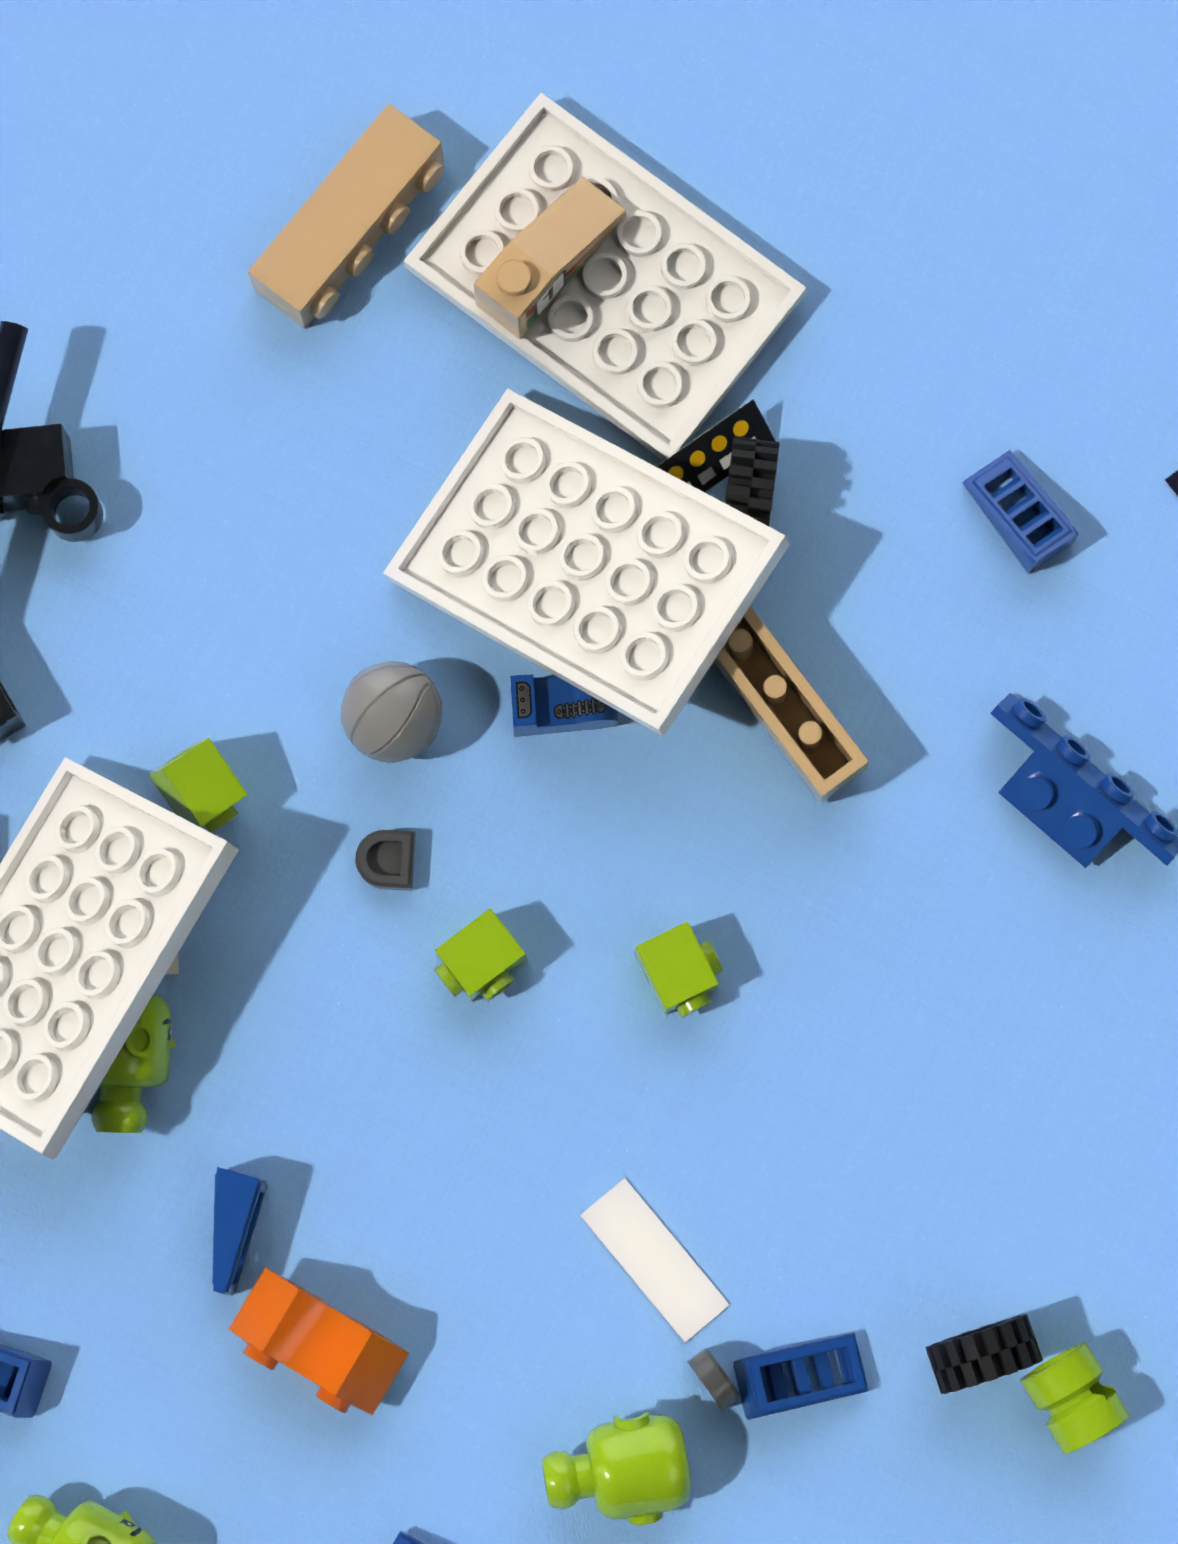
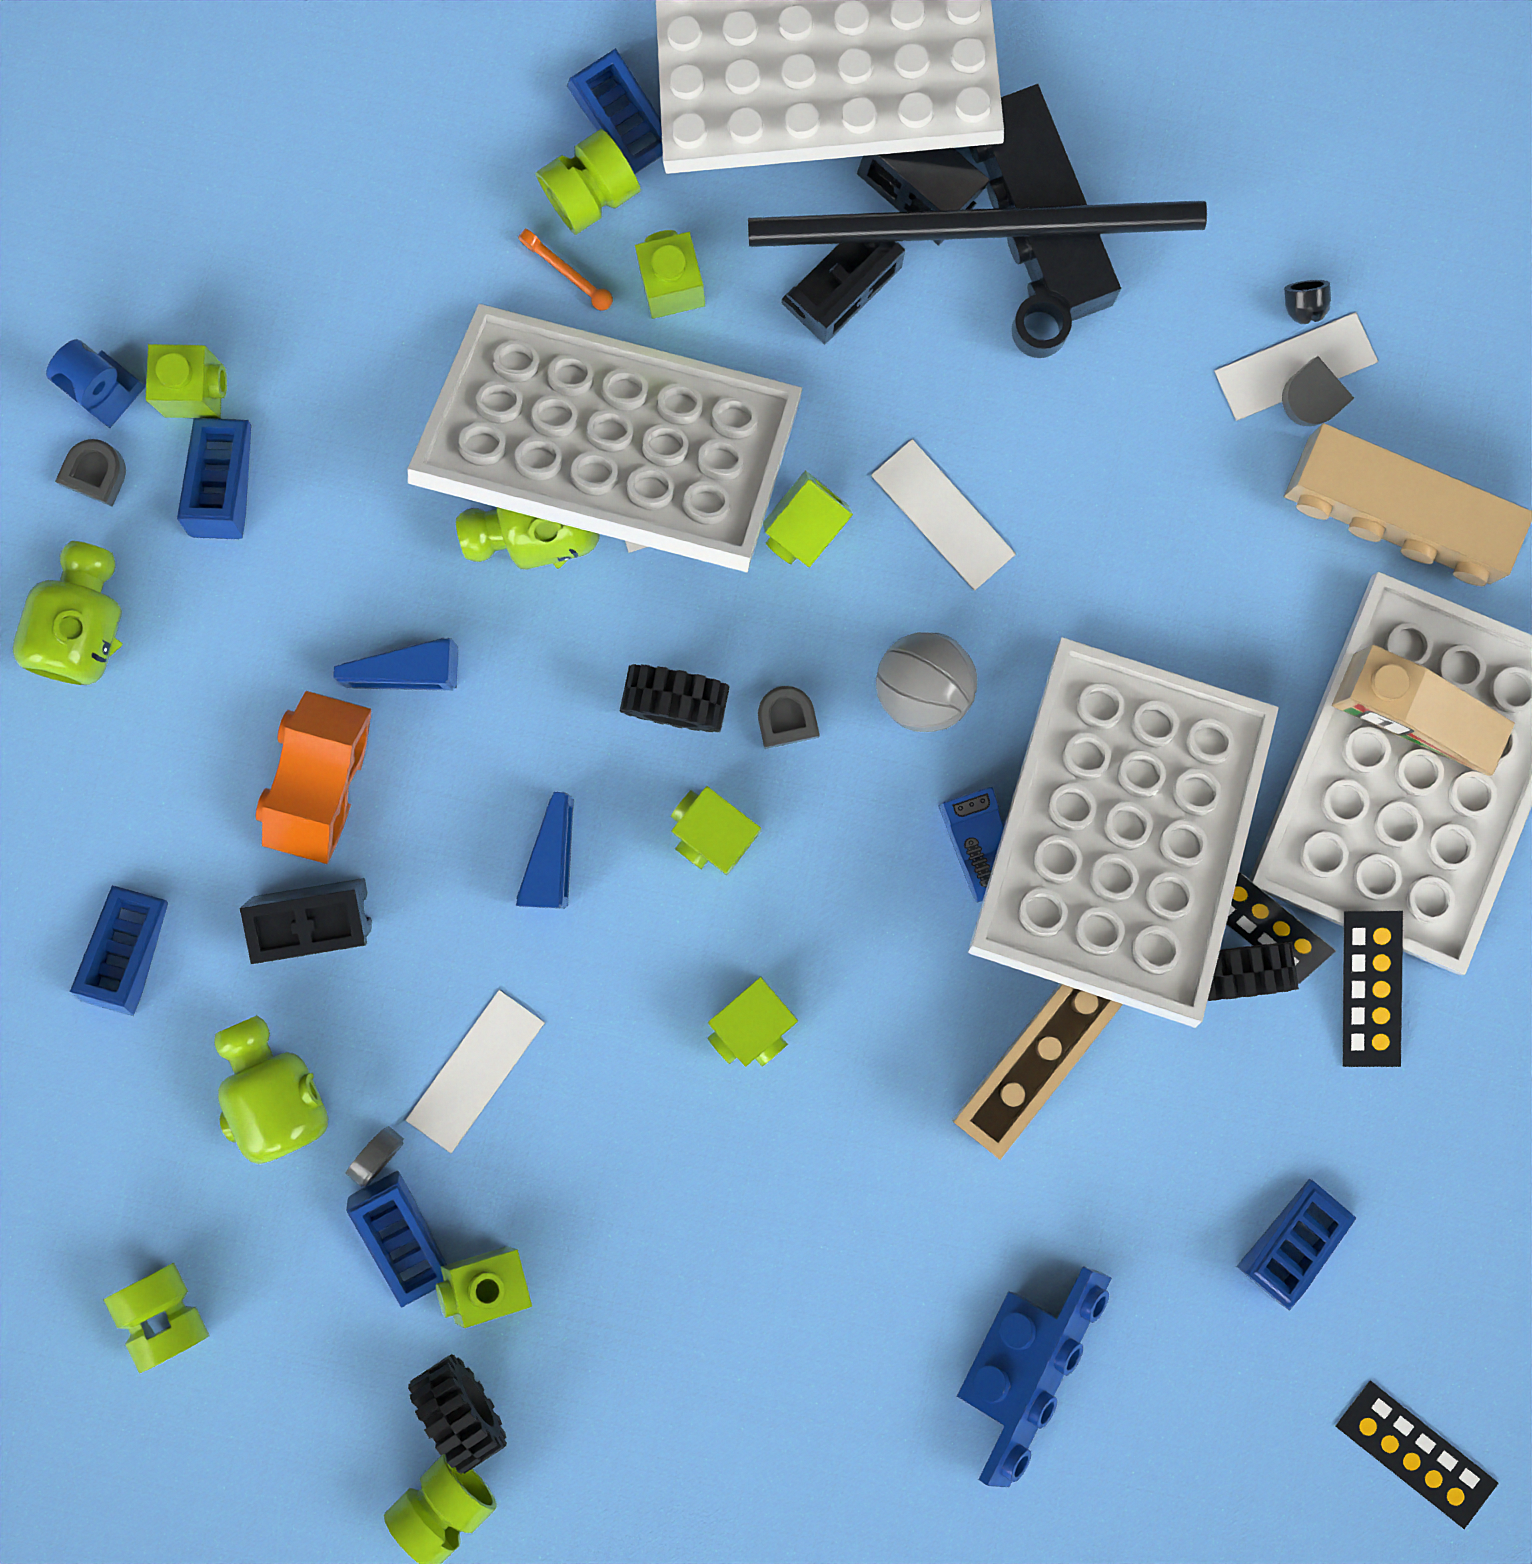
camera: 75 degrees right, 5 degrees up
(121, 253) = (1308, 300): none -> black hinge
(181, 282) = (1260, 378): none -> white sticker
(215, 272) = (1314, 394): none -> dark grey tile
(229, 655) = (943, 514): none -> white sticker
(339, 959) = (674, 698): none -> black tyre
(460, 1387) = (306, 921): none -> black hinge
(475, 1131) = (548, 869): none -> blue slope
(798, 375) = (1372, 988): none -> black sticker
(868, 1298) = (483, 1287): none -> lime brick

